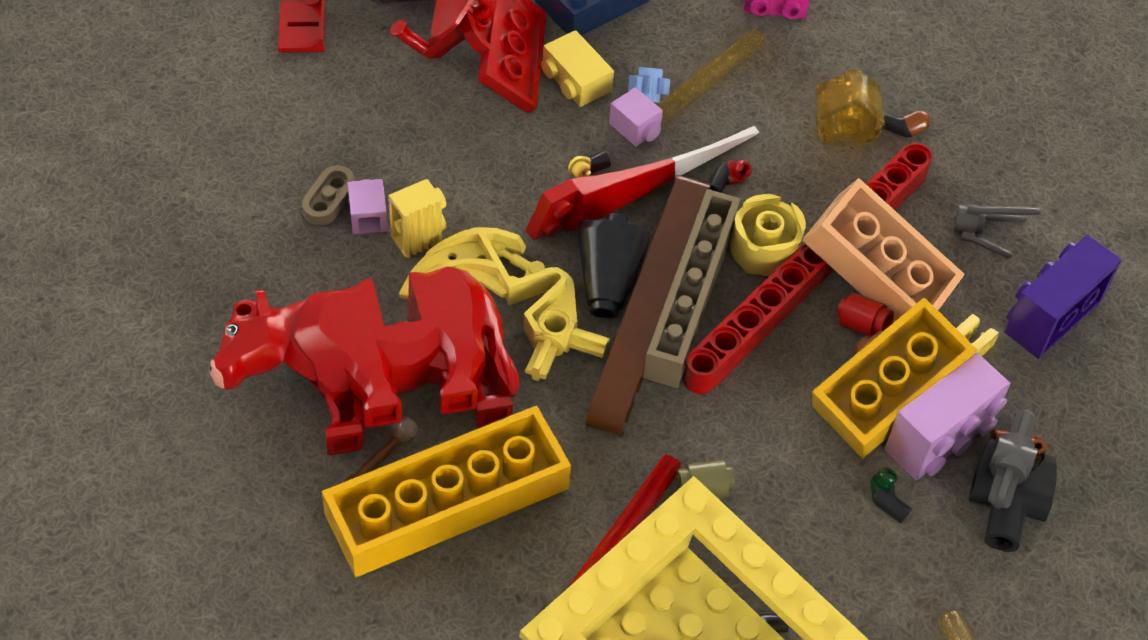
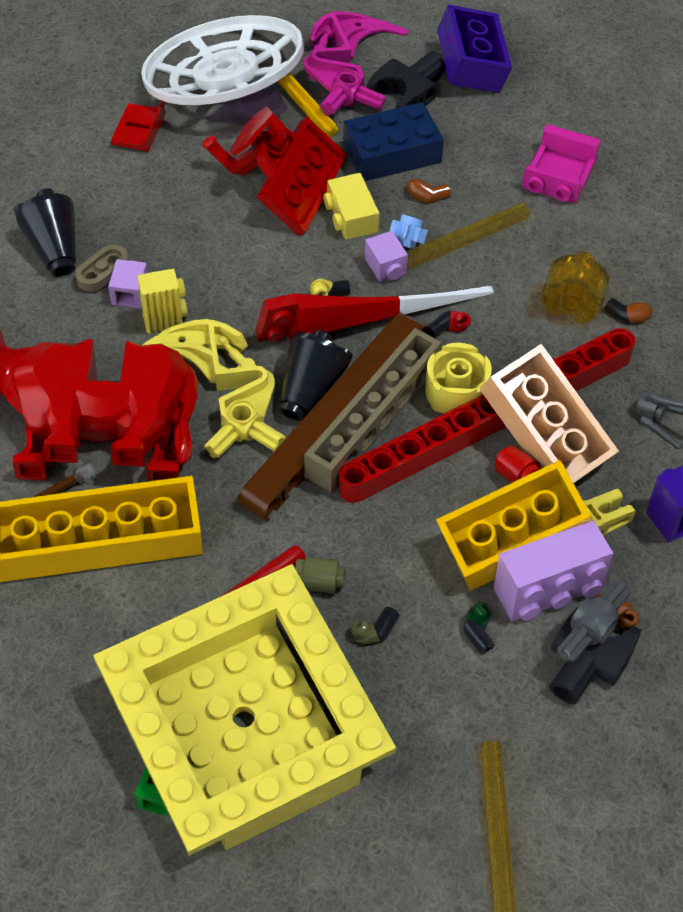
camera: 20 degrees right, 0 degrees up
(256, 164) = (50, 229): none -> black cone
(647, 38) = (425, 193): none -> dark orange arm
(786, 527) = (375, 632): none -> arm

